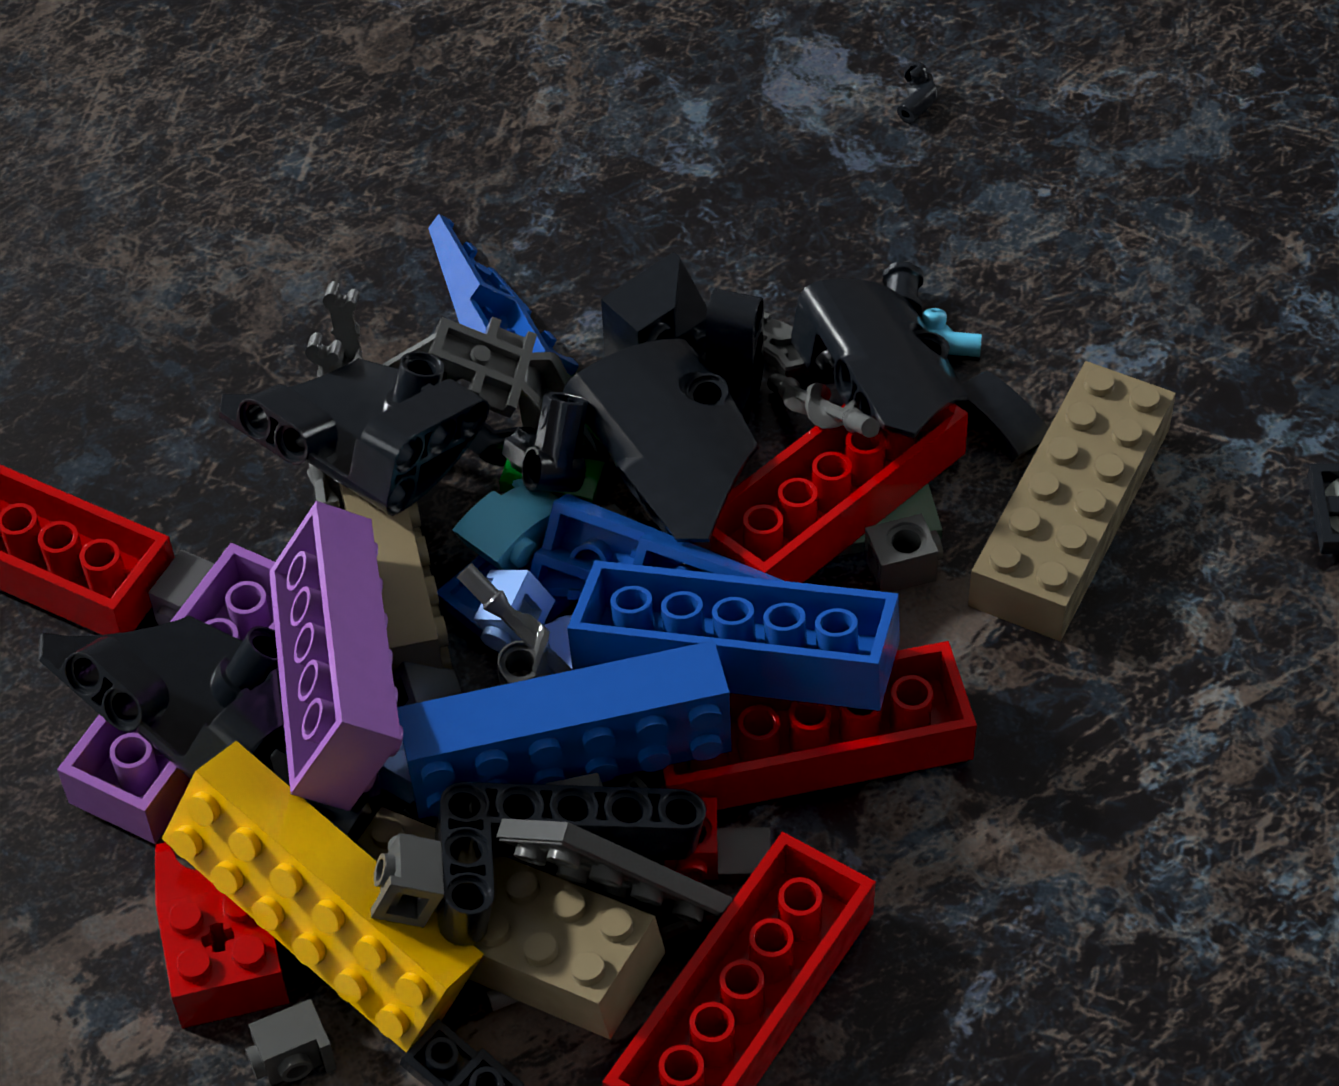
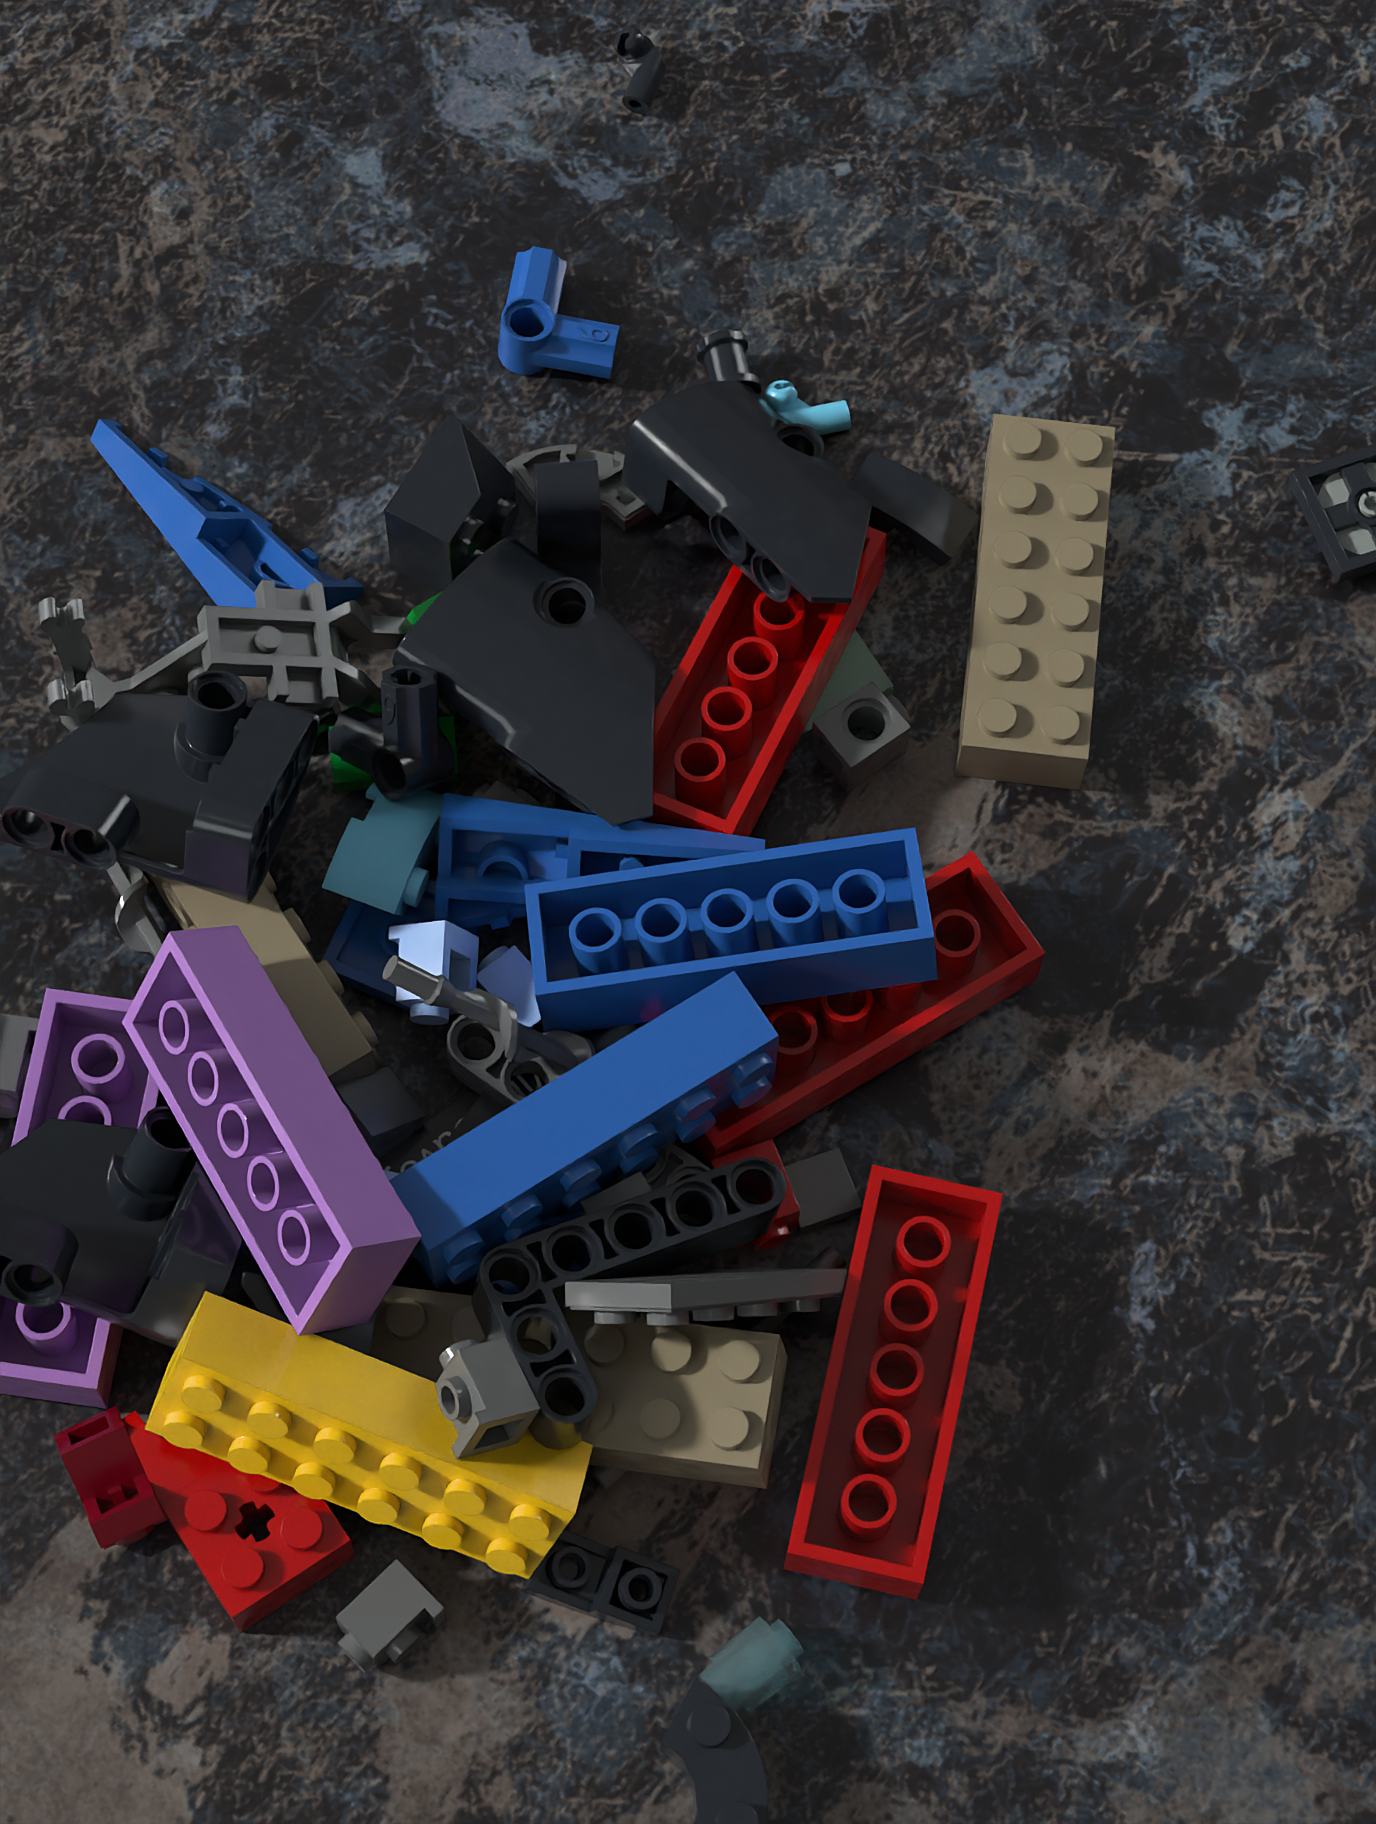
camera: 25 degrees left, 15 degrees up
(128, 887) = (109, 1479): none -> dark red brick
(771, 235) = (557, 339): none -> blue piece
(818, 408) = (710, 586): dark grey piece -> none

